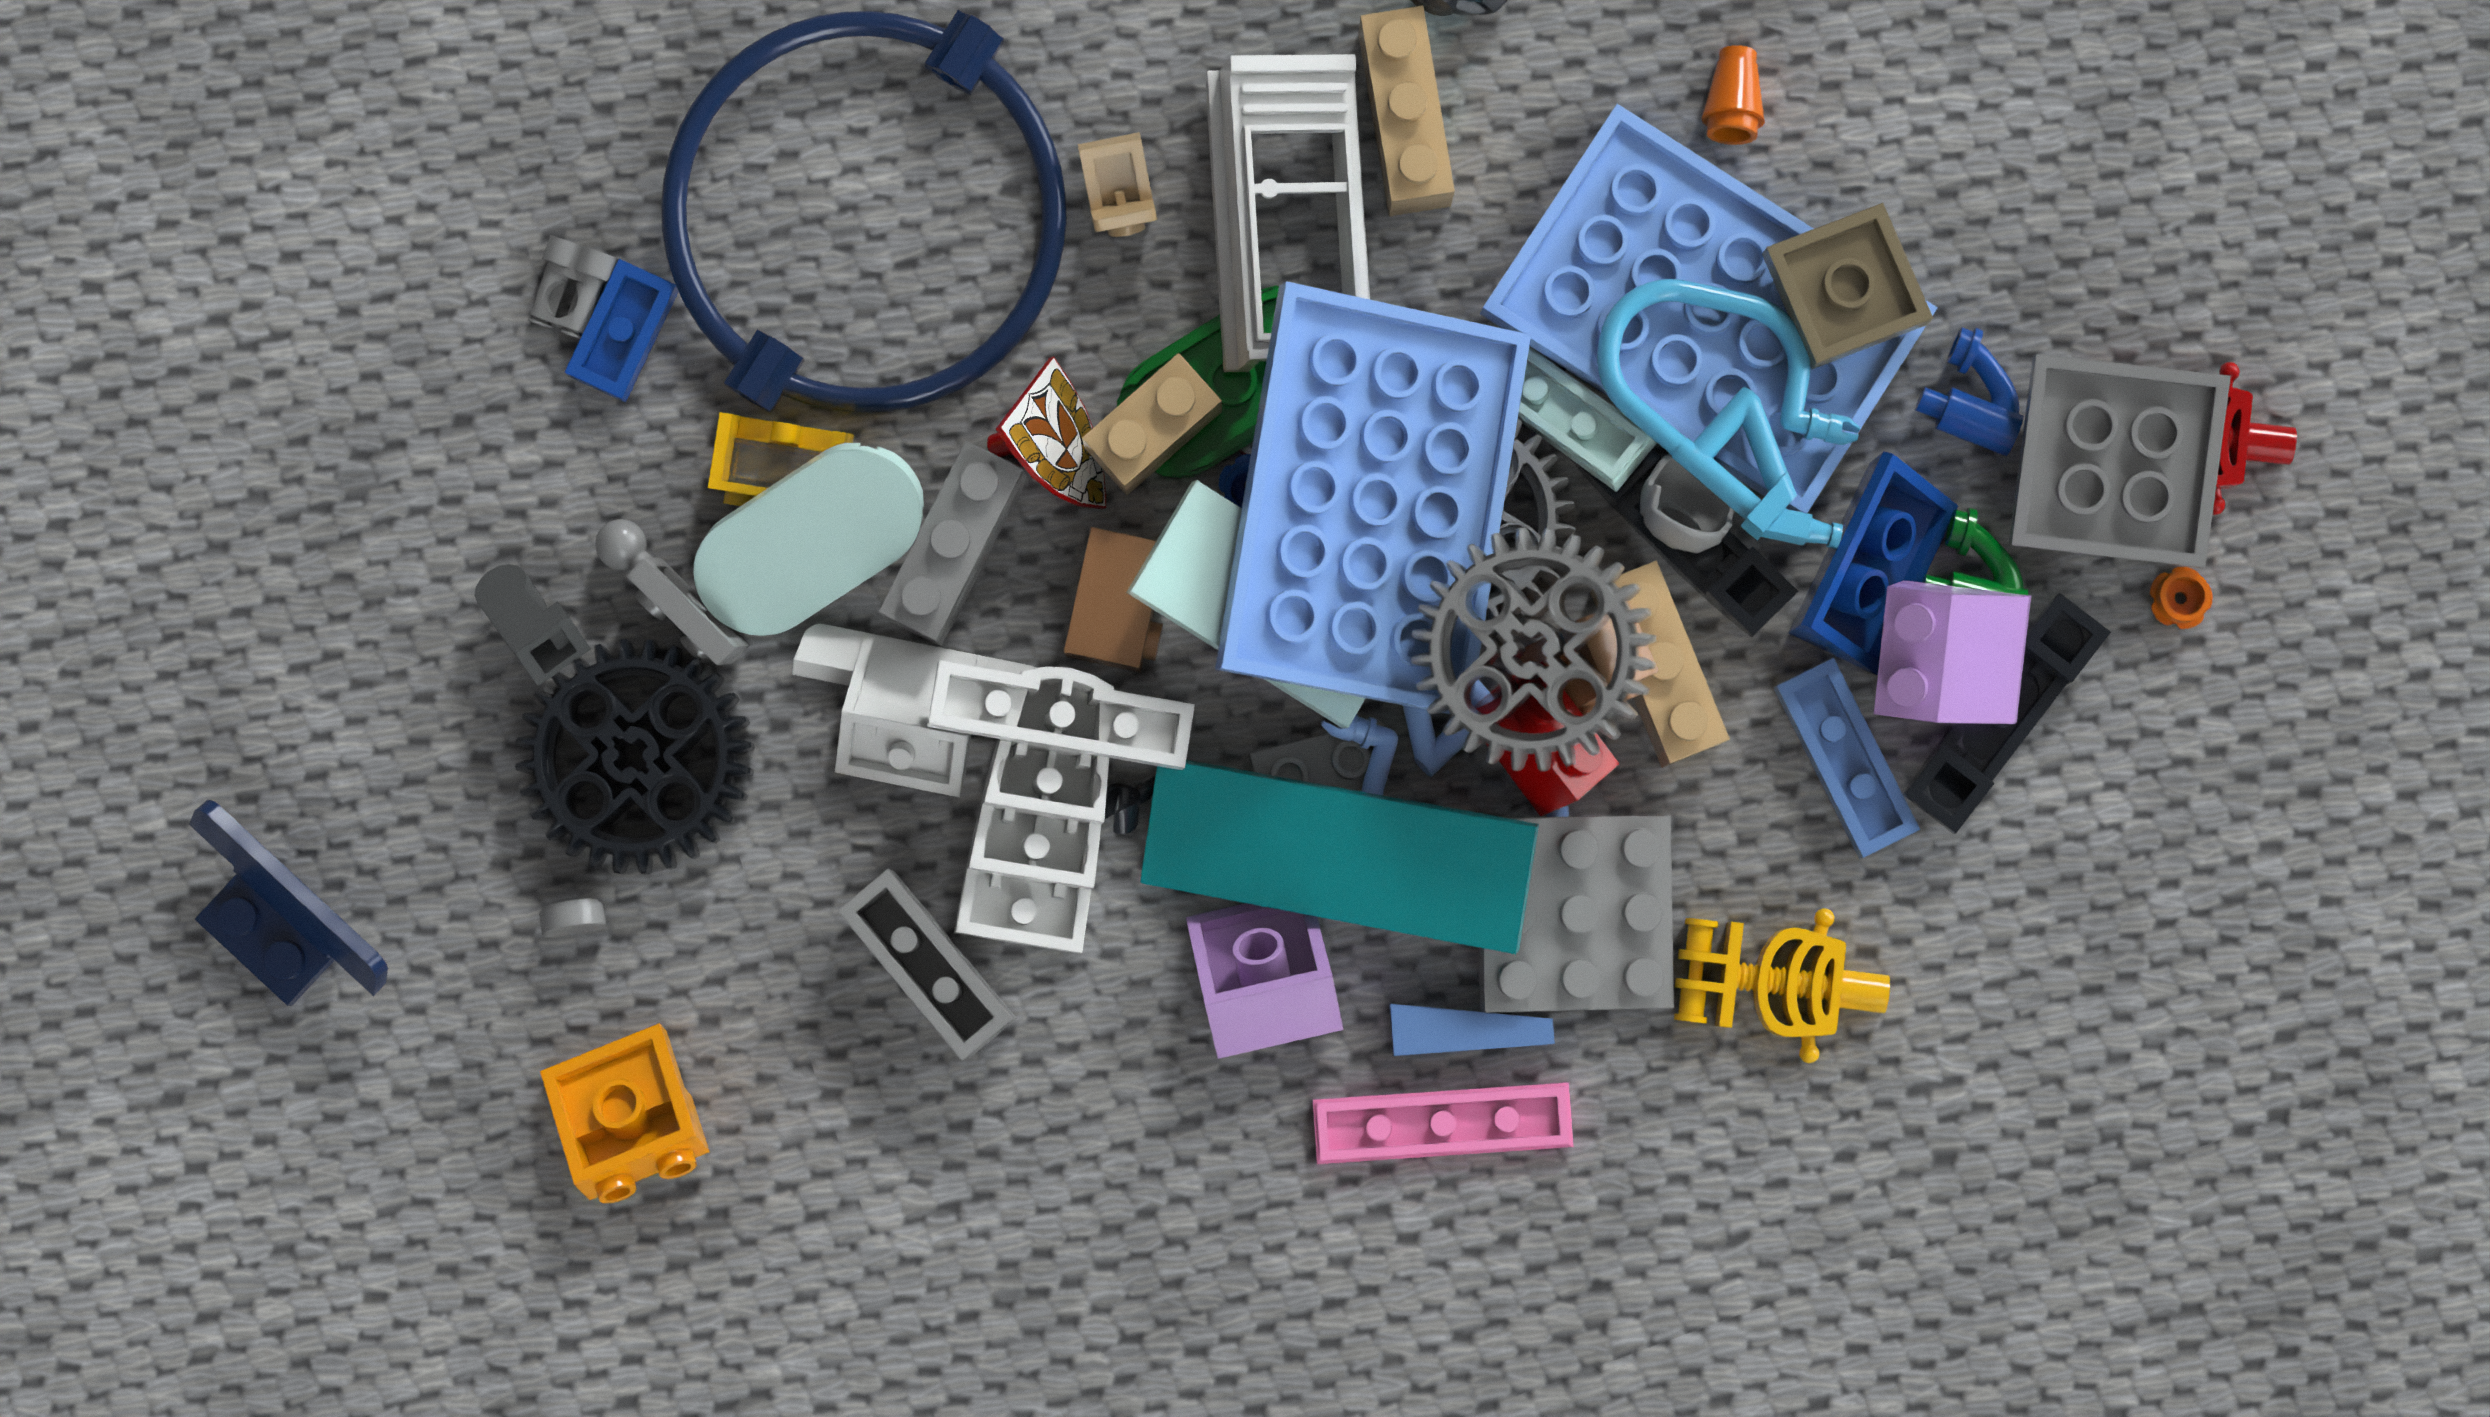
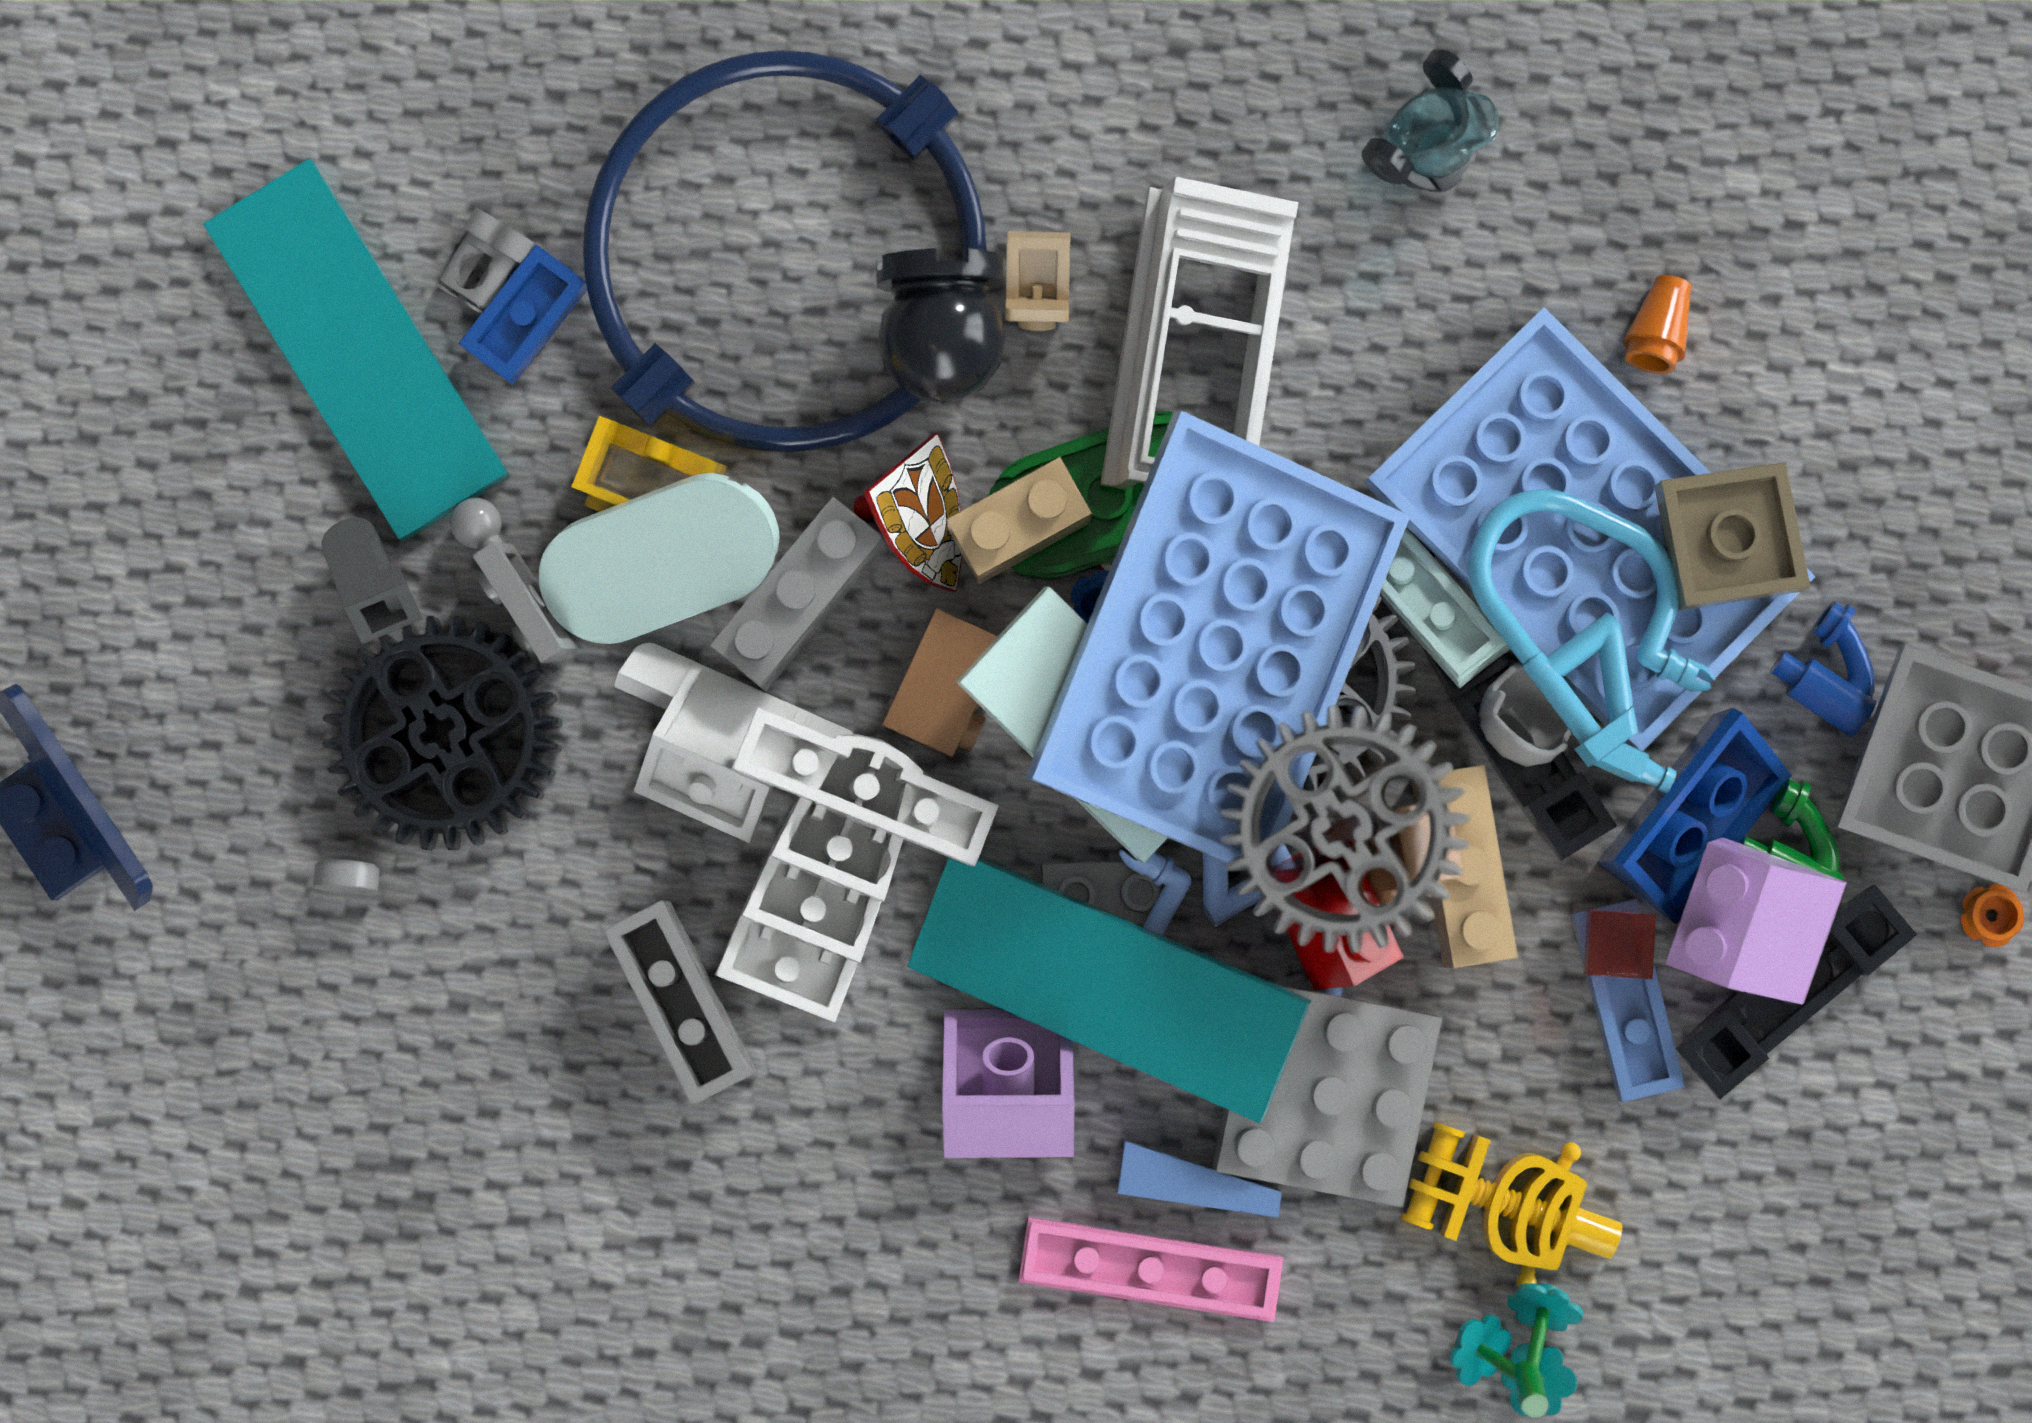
camera: 15 degrees right, 0 degrees up
(464, 401) = (356, 350): none -> teal tile
(624, 1115) = (353, 1082): light orange plate -> none
(1034, 252) = (941, 328): none -> black tile
(1124, 803) = (909, 885): black hand -> none
(1406, 111) = (1335, 268): tan brick -> none
(1826, 705) = (1619, 944): none -> clear red tile
(1834, 1140) = (1533, 1374): none -> teal plant

